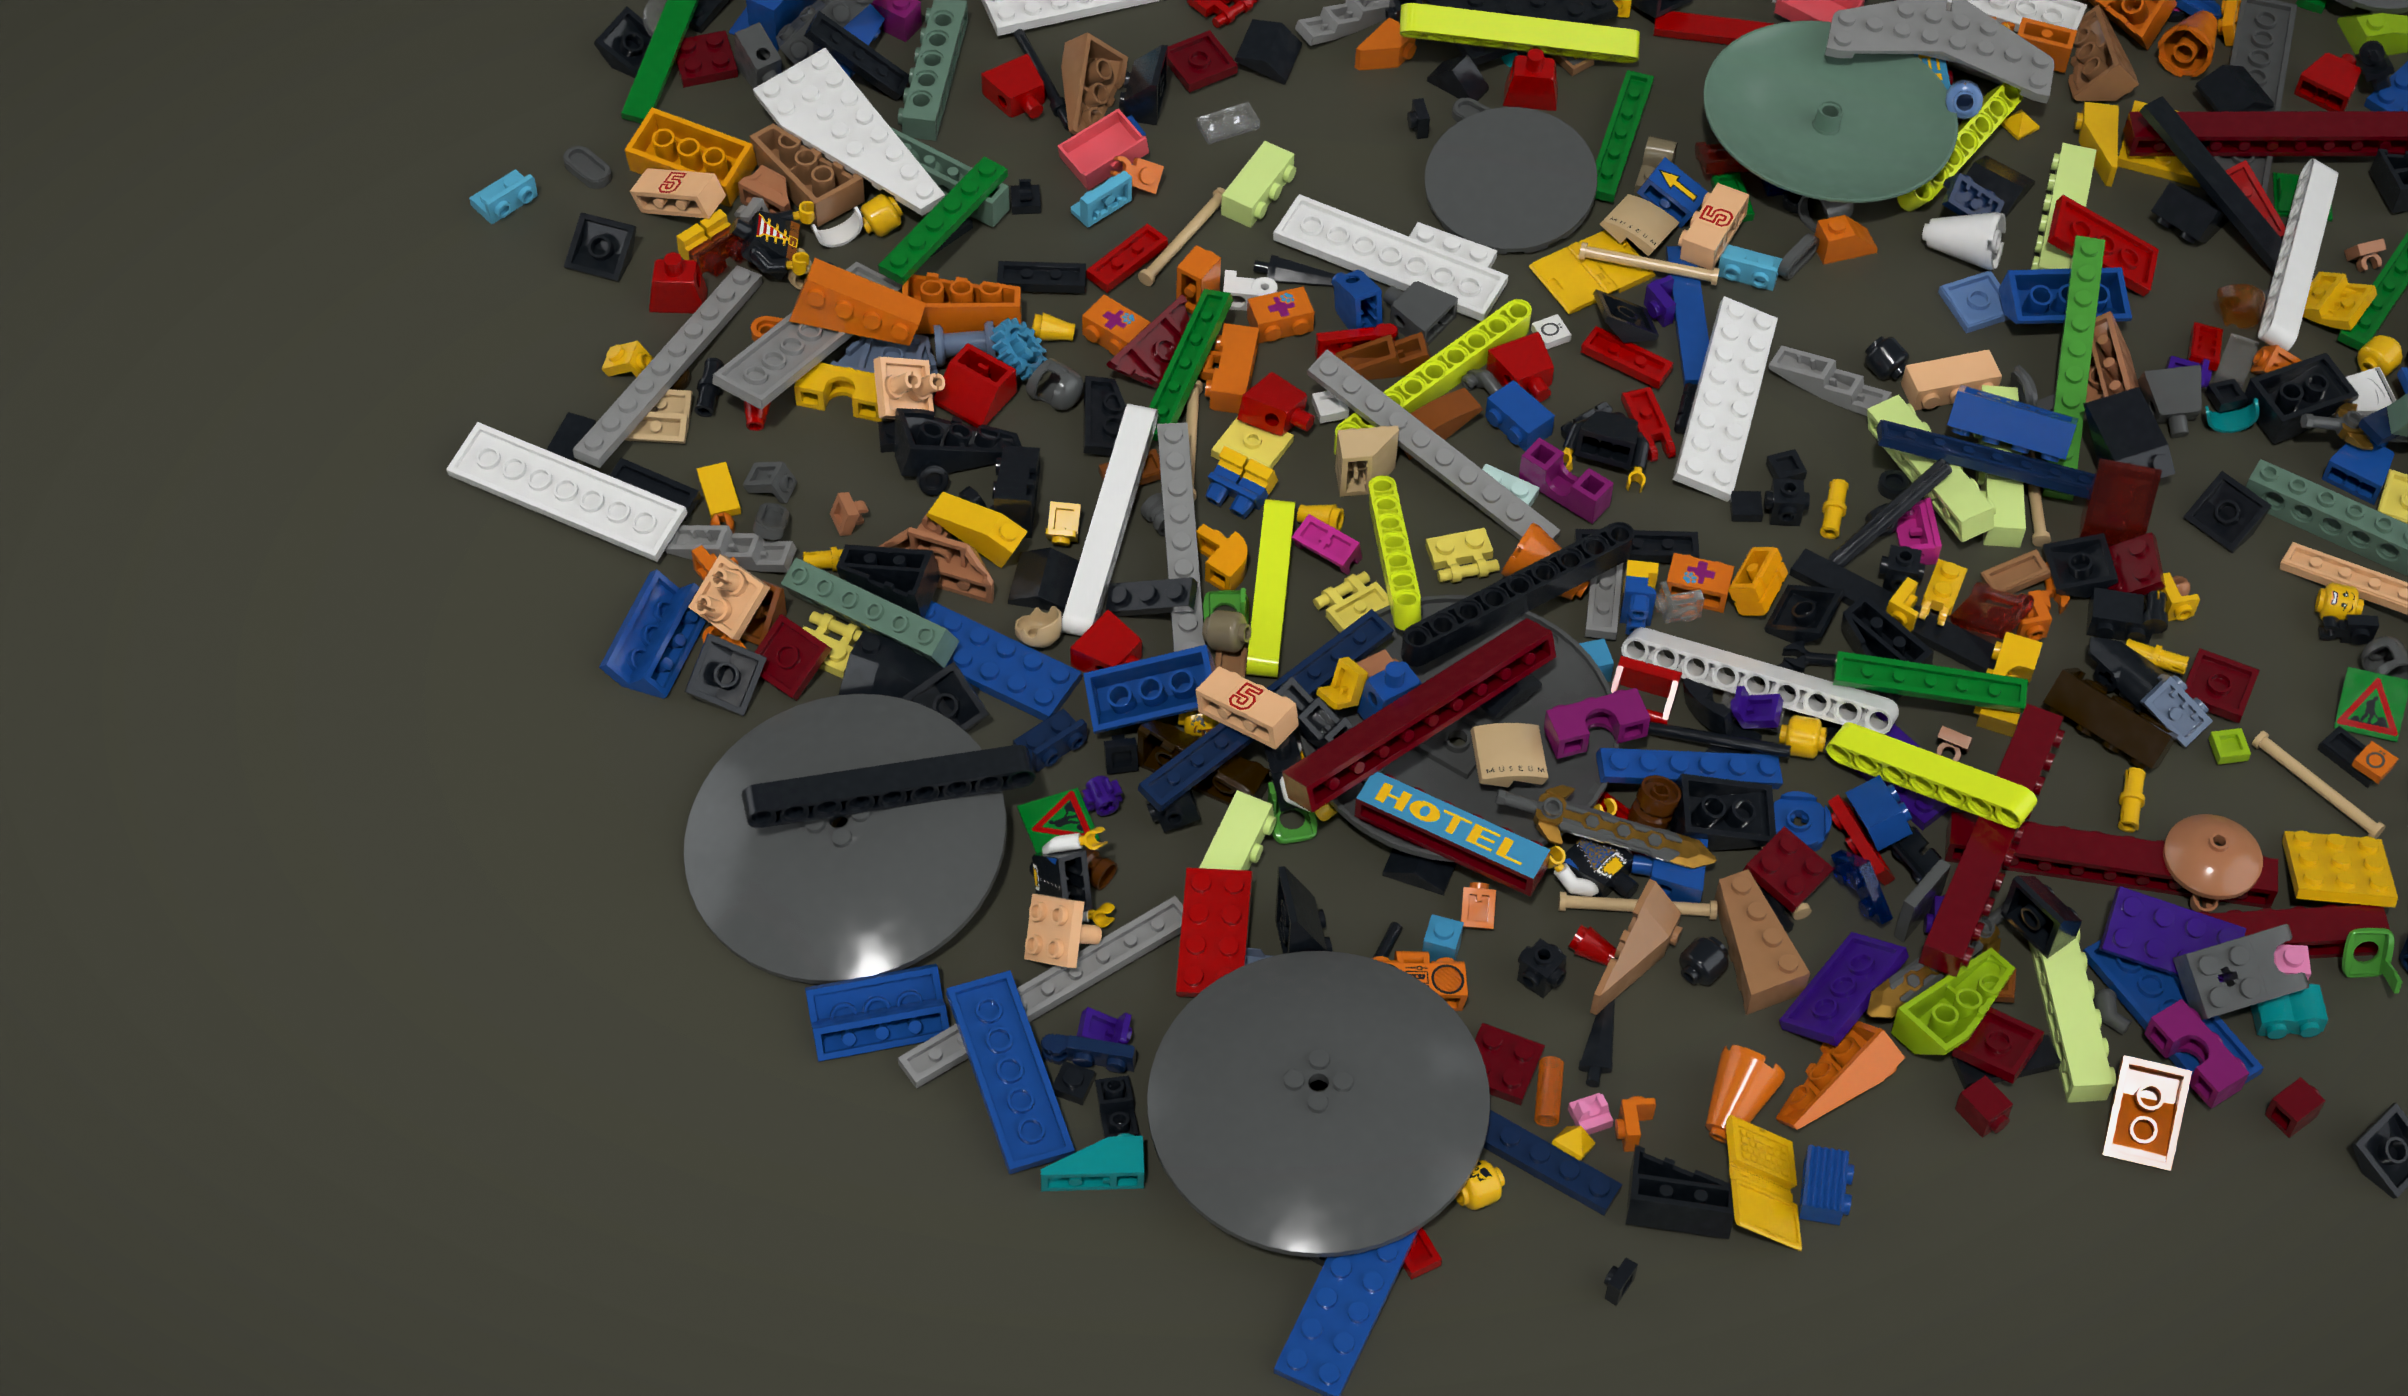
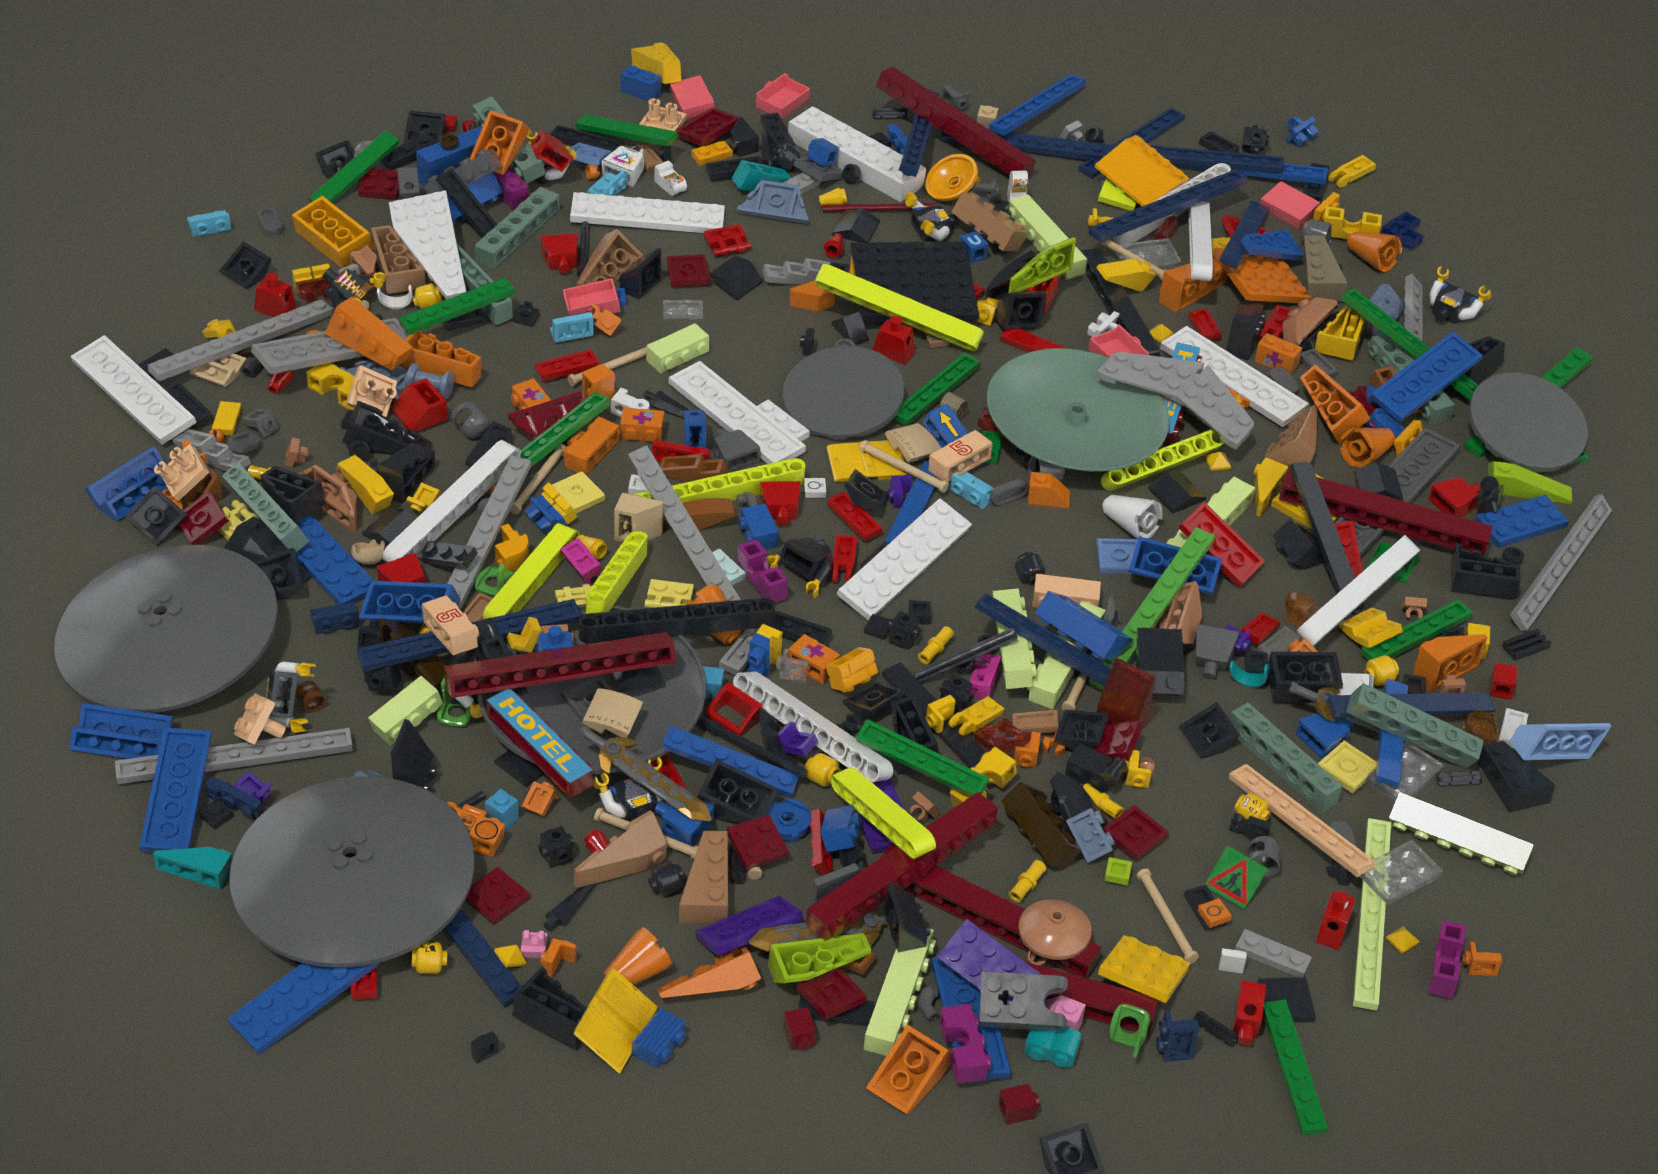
camera: 20 degrees right, 10 degrees down
(678, 193) = (309, 247): light nougat brick -> none
(887, 786) = (197, 598): black beam -> none
(1018, 347) = (458, 390): dark azure gear -> none
(1043, 276) = (506, 360): black plate -> none
(1052, 328) = (490, 389): yellow cone -> none
(1055, 816) = (315, 655): green piece -> none
(1102, 795) = (342, 657): dark purple gear -> none
(1116, 1106) = (232, 833): black slope -> none
(1212, 927) = (360, 748): red plate -> none
(1226, 631) = (481, 587): dark tan head -> none
(1275, 406) = (600, 473): red torso -> none
(1550, 1087) = (510, 918): orange piece -> none
(1618, 712) = (662, 704): magenta arch -> none
(1655, 802) = (692, 772): reddish brown wheel -> none
(1823, 380) = (979, 567): light grey slope -> none
(1859, 874) = (798, 860): clear blue plate -> none
(1964, 99) = (1176, 429): medium blue head -> none
(1968, 197) = (1144, 487): dark blue bracket -> none
(2051, 39) = (1266, 417): orange brick -> none

